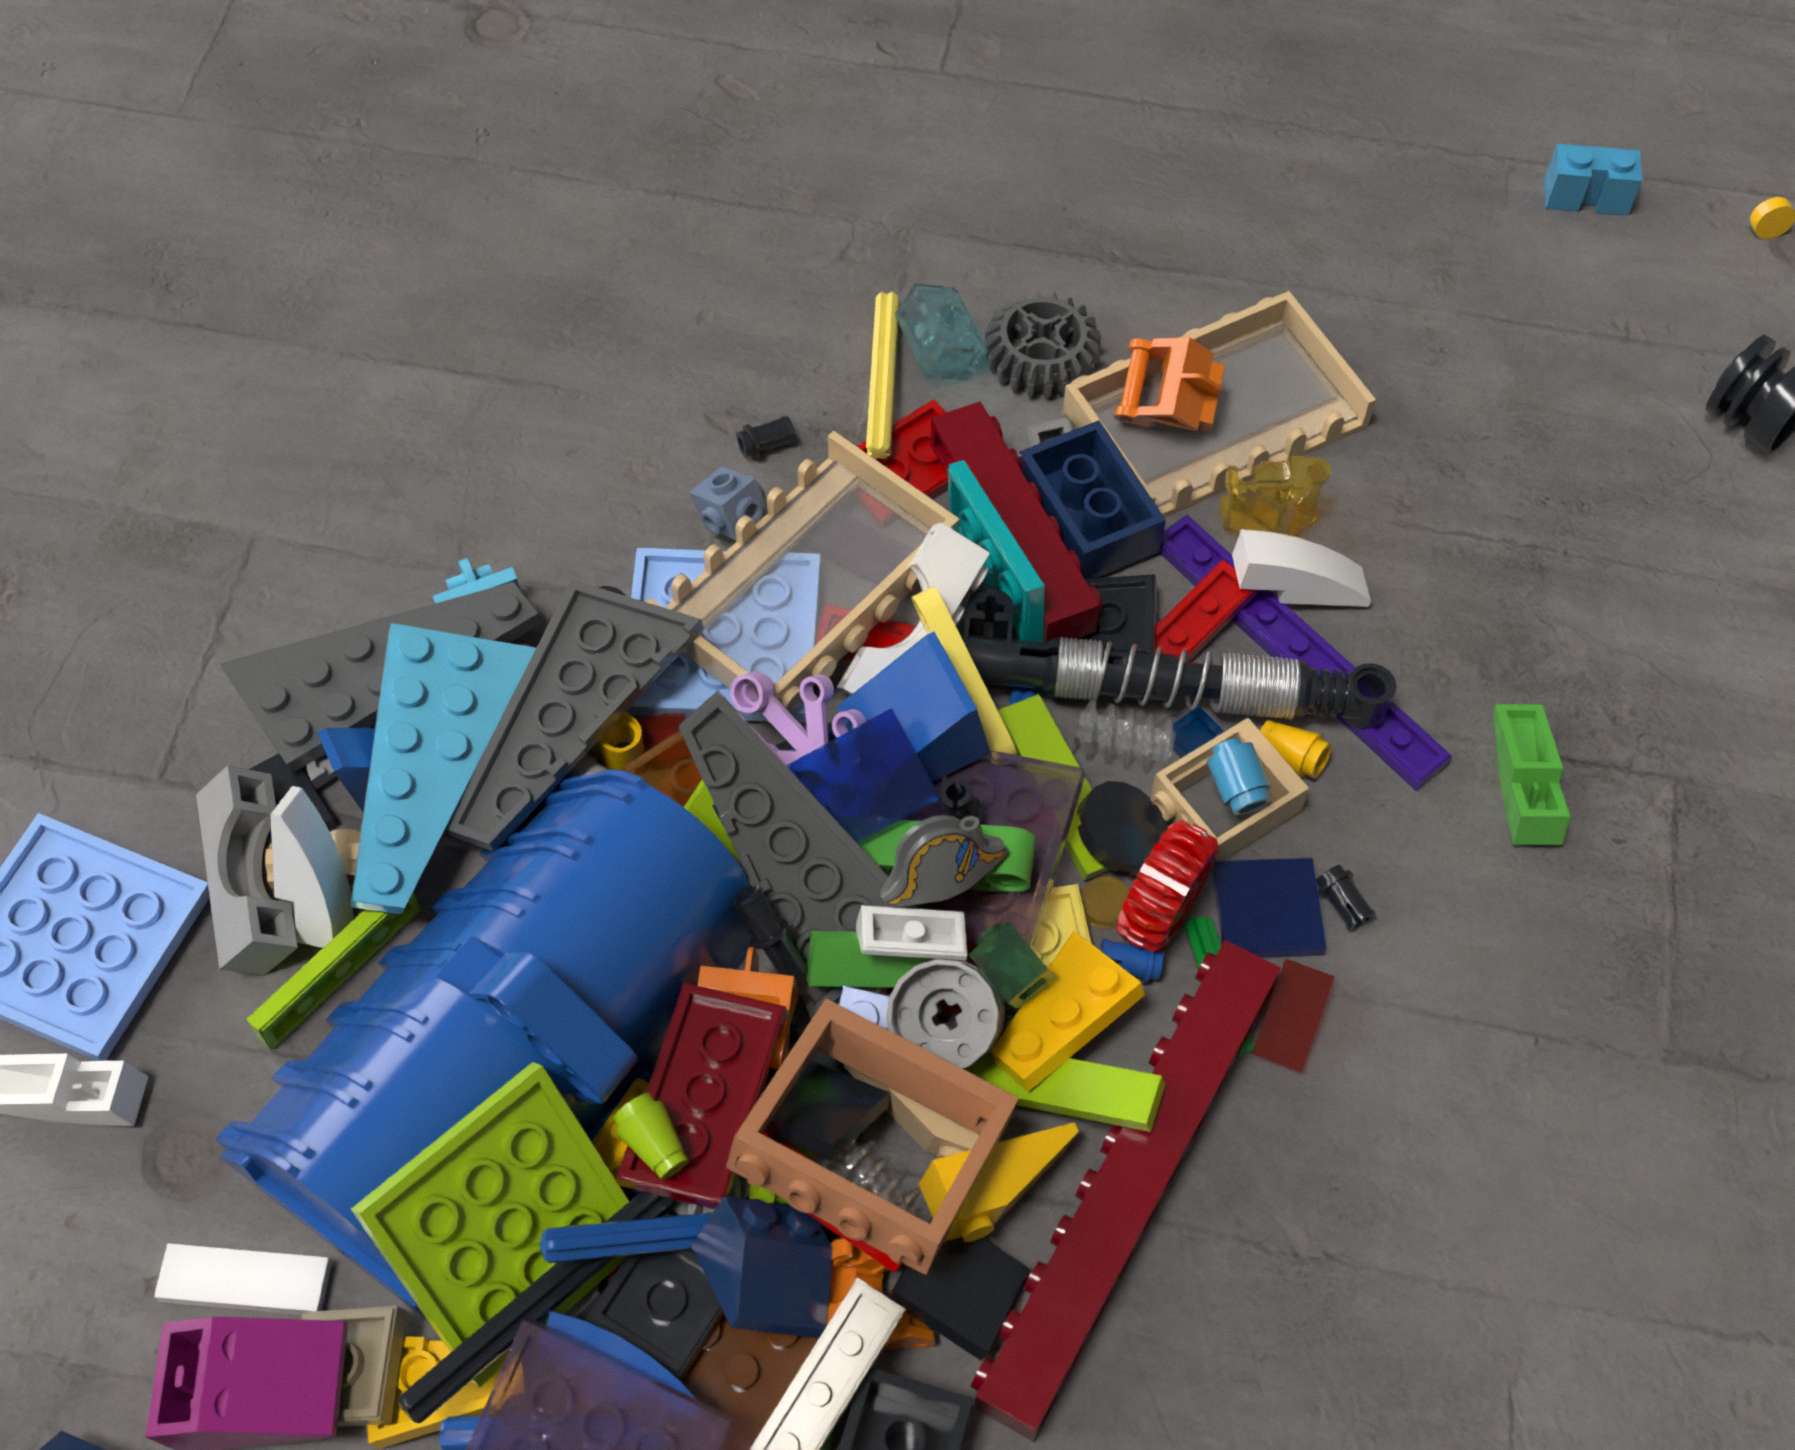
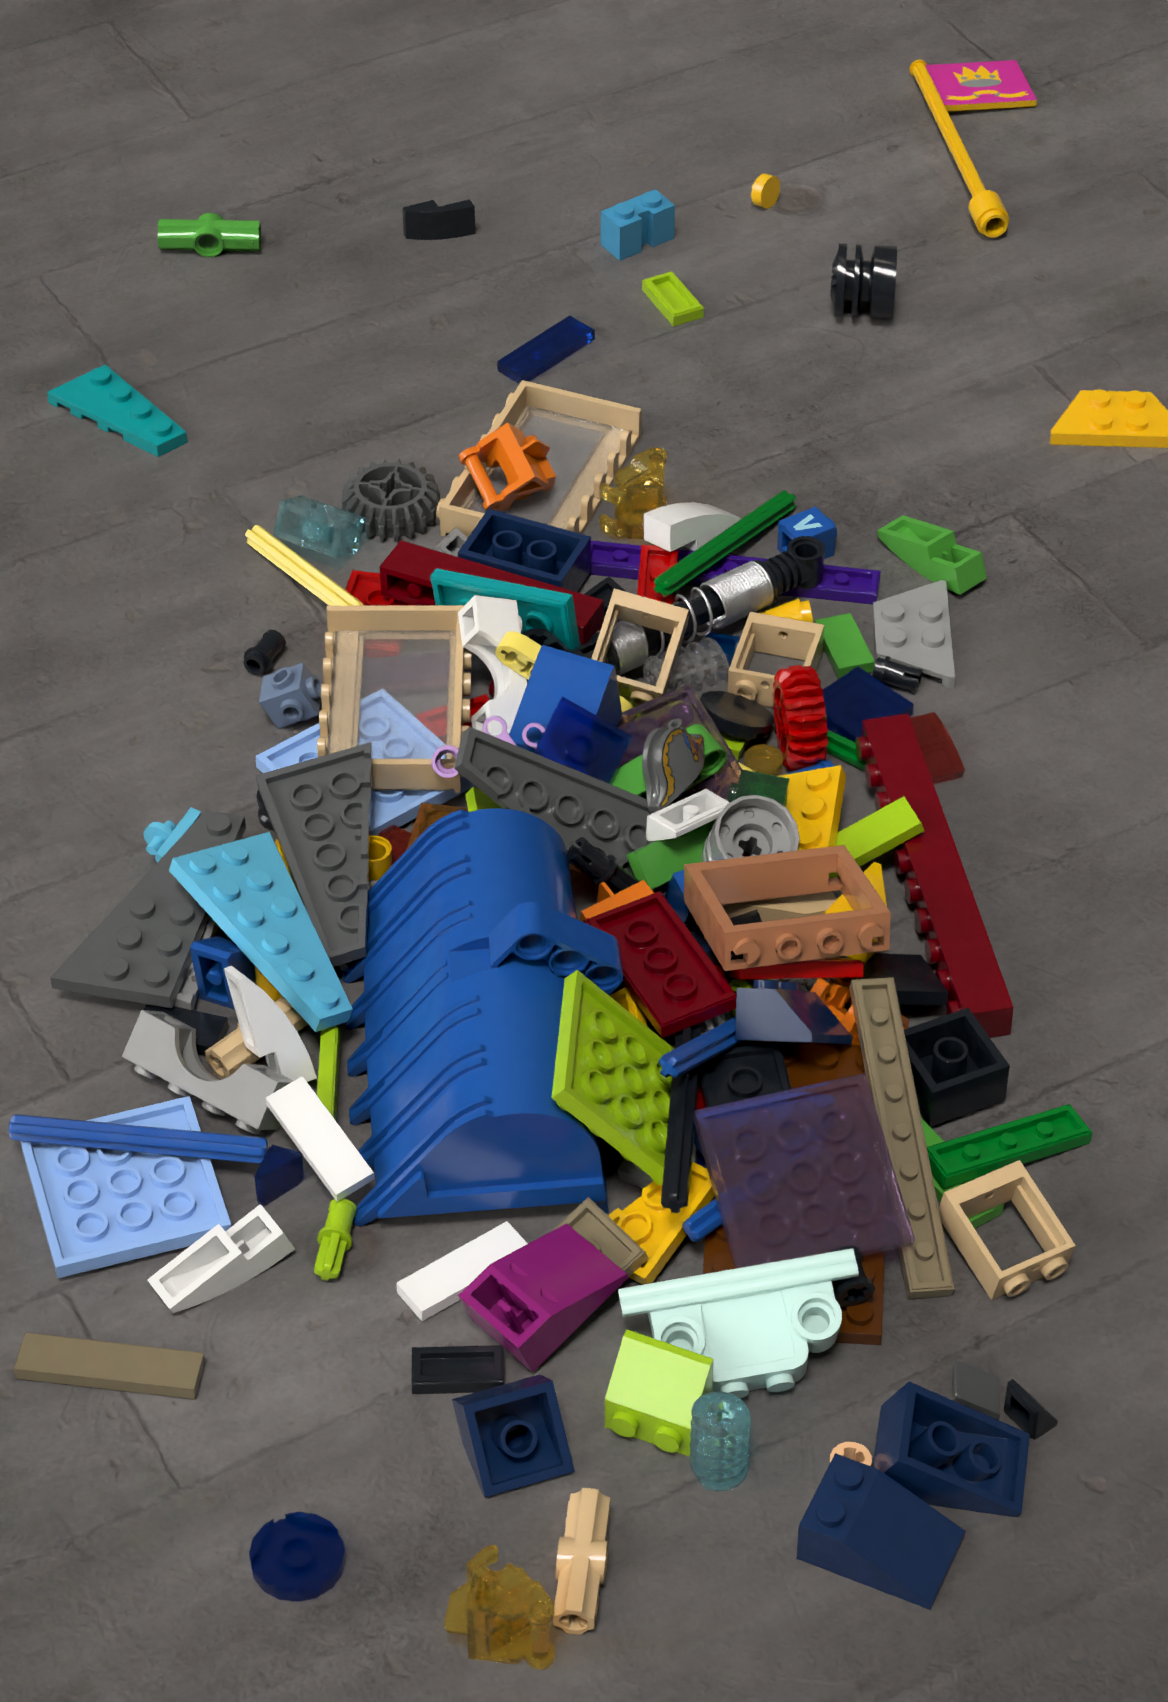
camera: 40 degrees left, 15 degrees down
(113, 901) = (138, 1138): none -> blue axle
(116, 1384) = (456, 1369): none -> black tile
(170, 1146) = (334, 1239): none -> lime axle
(190, 1031) = (278, 1174): none -> clear blue slope
(237, 1031) = (319, 1138): none -> white tile
(651, 1135) = (663, 985): lime cone -> none
(905, 89) = (120, 409): none -> teal wing
(960, 801) = (639, 736): black pin -> none
(1072, 632) = (652, 615): none -> tan window
(1239, 776) = (782, 636): dark azure brick -> none
(1313, 613) = (724, 543): none -> green axle
(1328, 819) = (845, 645): none -> bright green tile
(1365, 268) = (546, 350): none -> clear blue tile
(1406, 65) = (432, 222): none -> black slope
(1414, 661) = (808, 523): none -> blue brick
(1419, 858) = (916, 631): none -> light grey wing
(1553, 286) = (672, 298): none -> lime tile

